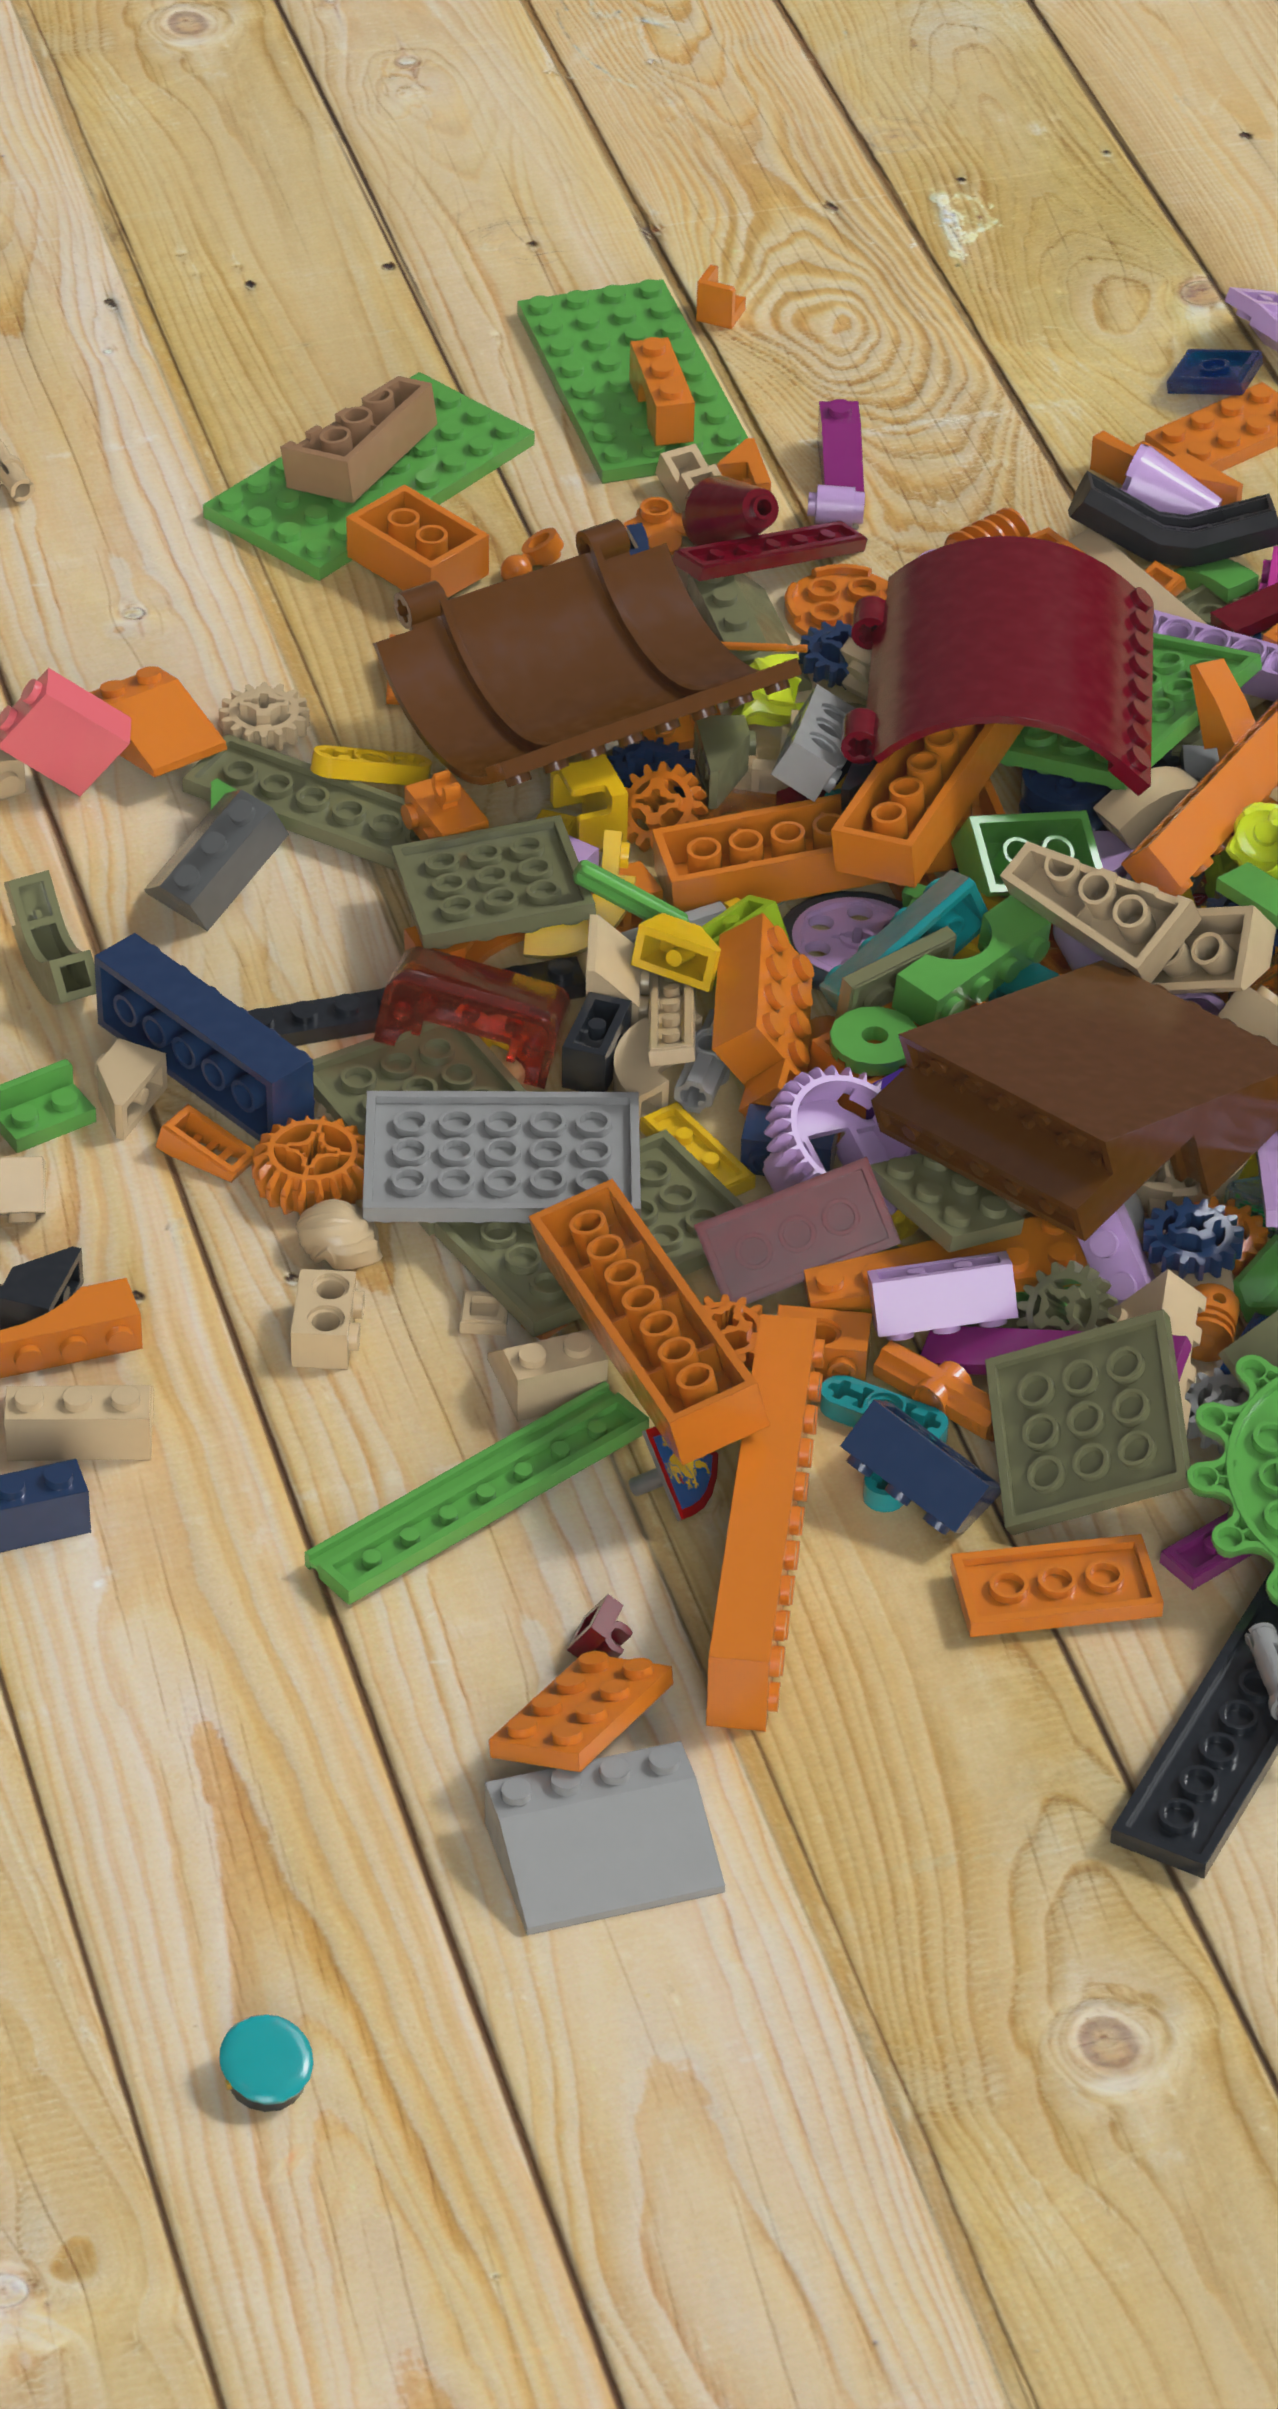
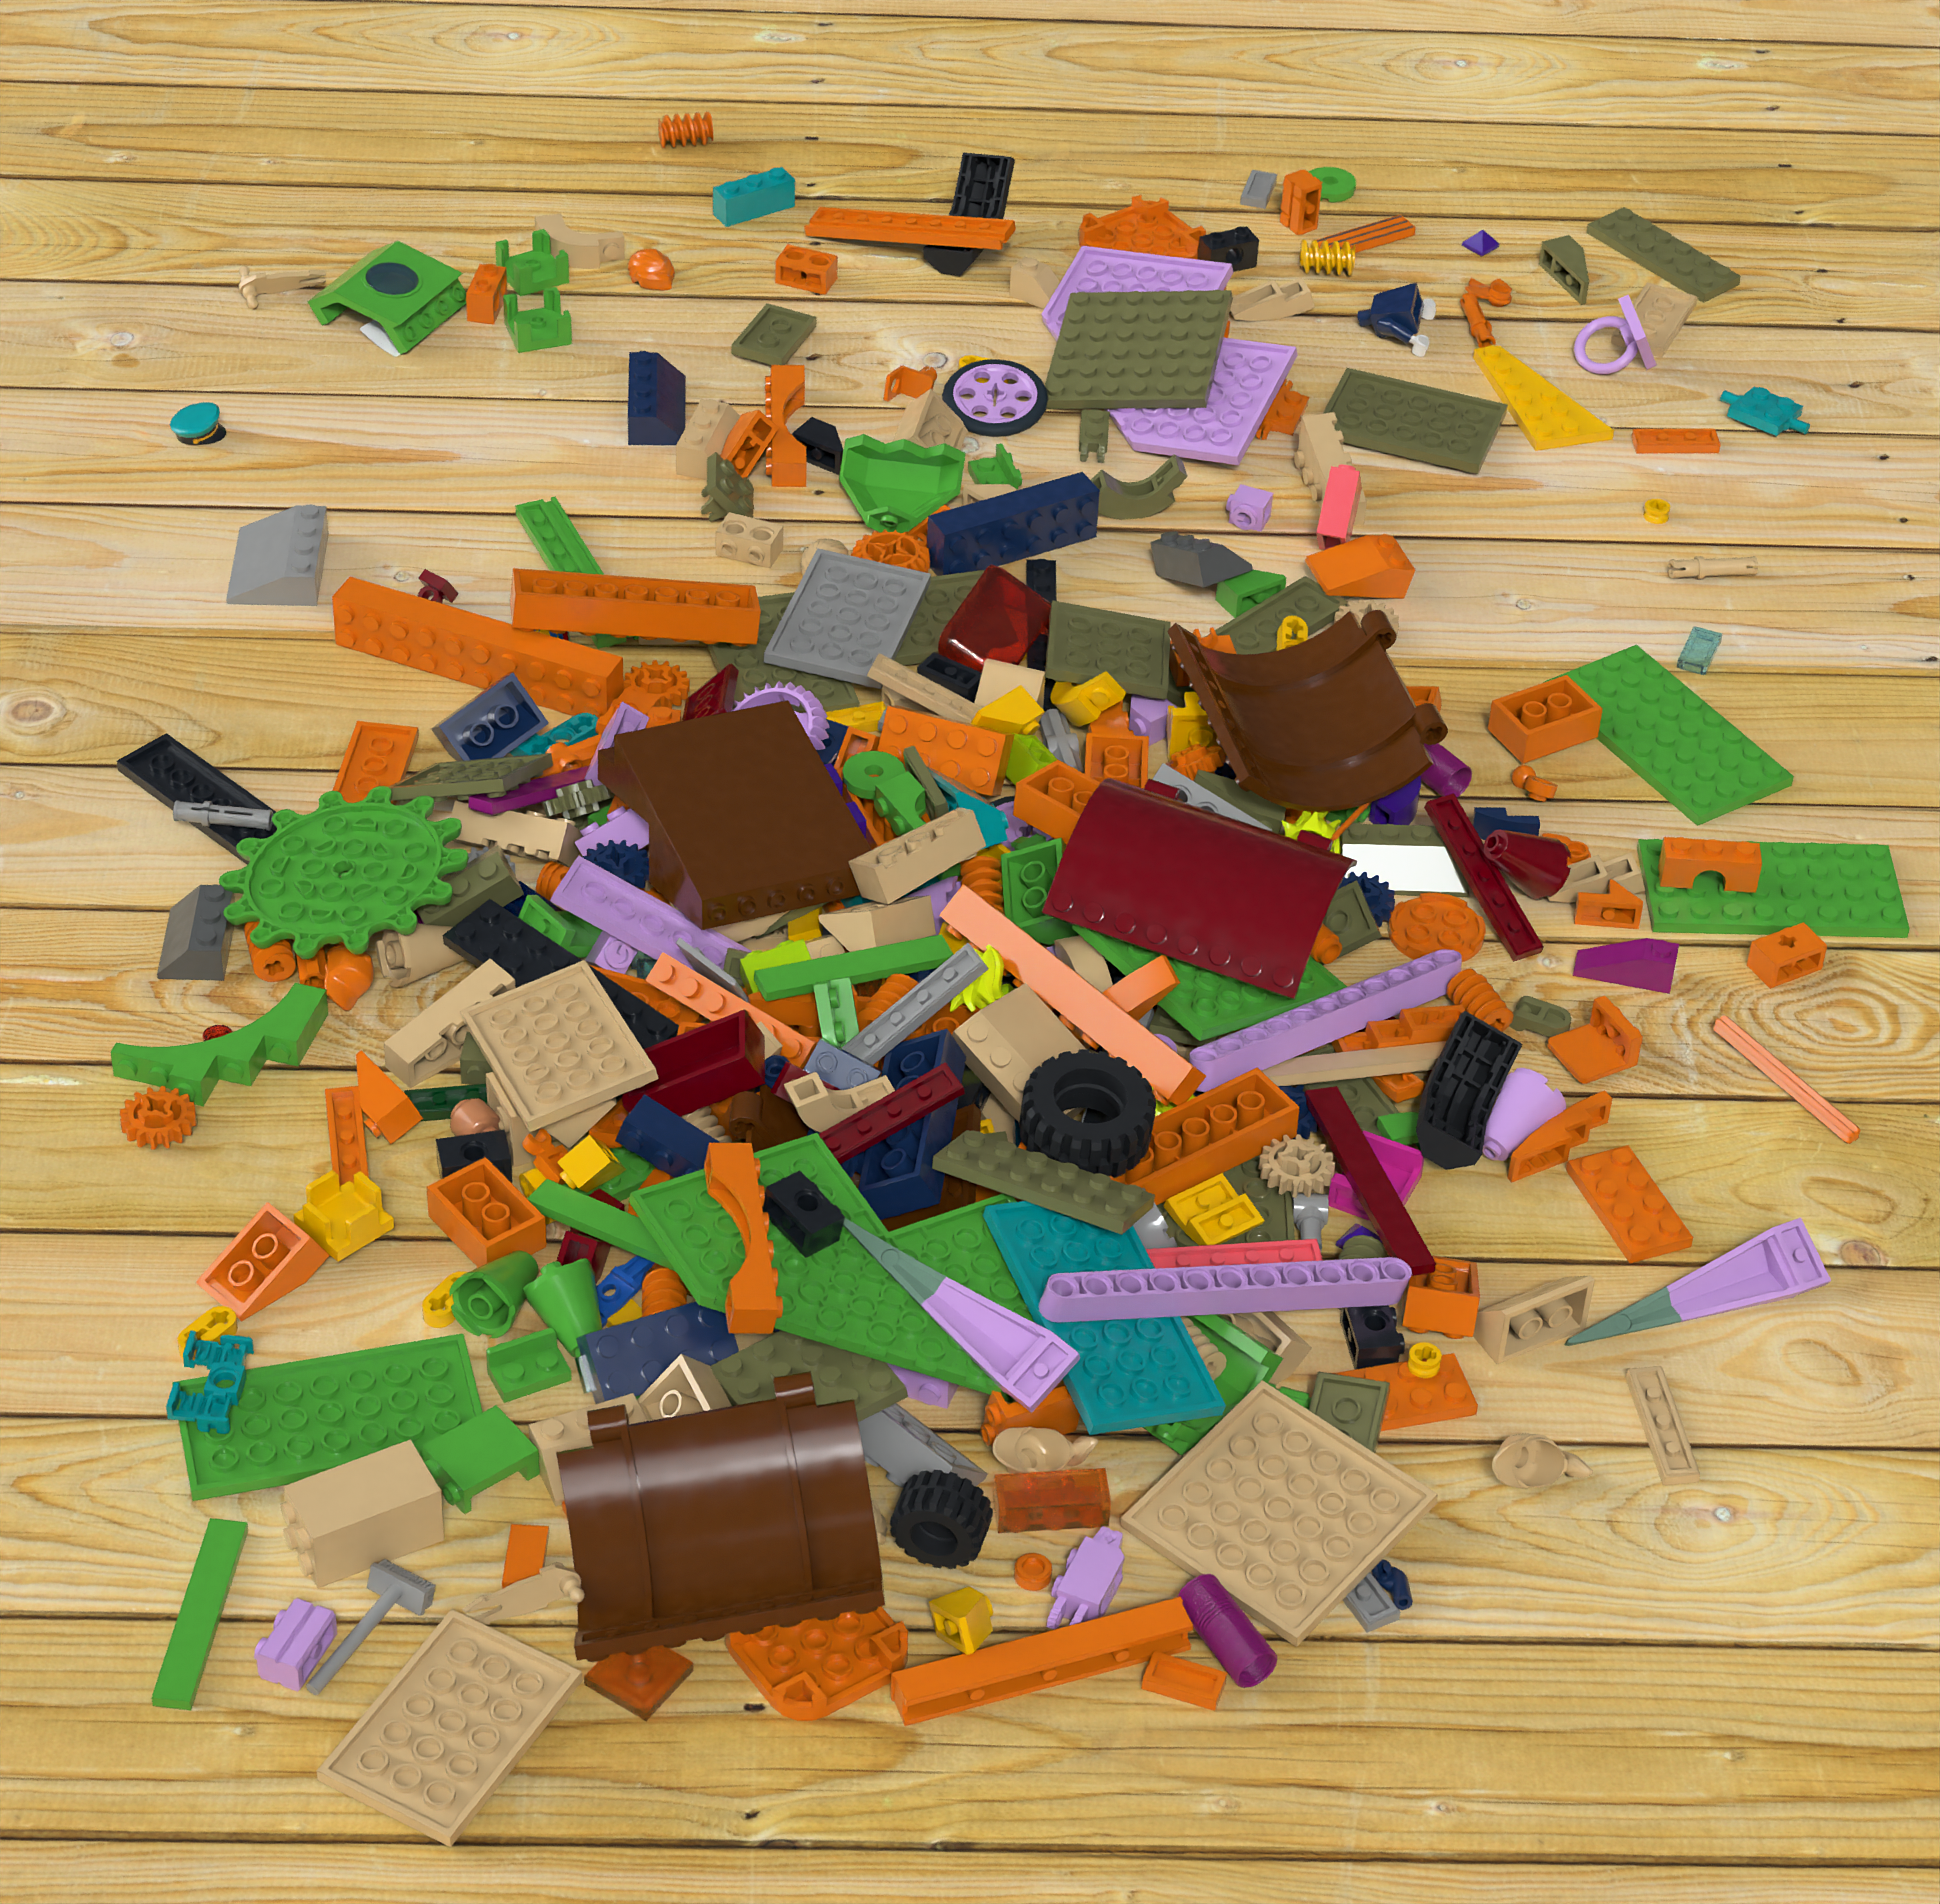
camera: 105 degrees right, 0 degrees up
(33, 847) = (1249, 508): none -> lavender brick
(93, 1356) = (748, 441): none -> orange slope
(128, 1185) = (899, 481): none -> bright green panel
(184, 462) = (1699, 650): none -> clear light blue tile
(207, 1349) = (726, 490): none -> olive plate
(362, 441) = (1665, 702): medium nougat wedge -> none
(581, 1711) = (362, 550): orange plate -> none
(622, 892) = (1059, 696): bright green axle -> none
(718, 301) = (1870, 947): orange panel -> none
(763, 351) = (1786, 955): none -> orange brick
(836, 504) = (1559, 945): lavender brick -> none
(964, 347) = (1787, 1079): none -> orange axle
(967, 505) = (1540, 1017): none -> olive plate
(991, 466) = (1600, 1047): none -> orange bracket
(1214, 372) = (1708, 1207): clear blue tile -> none

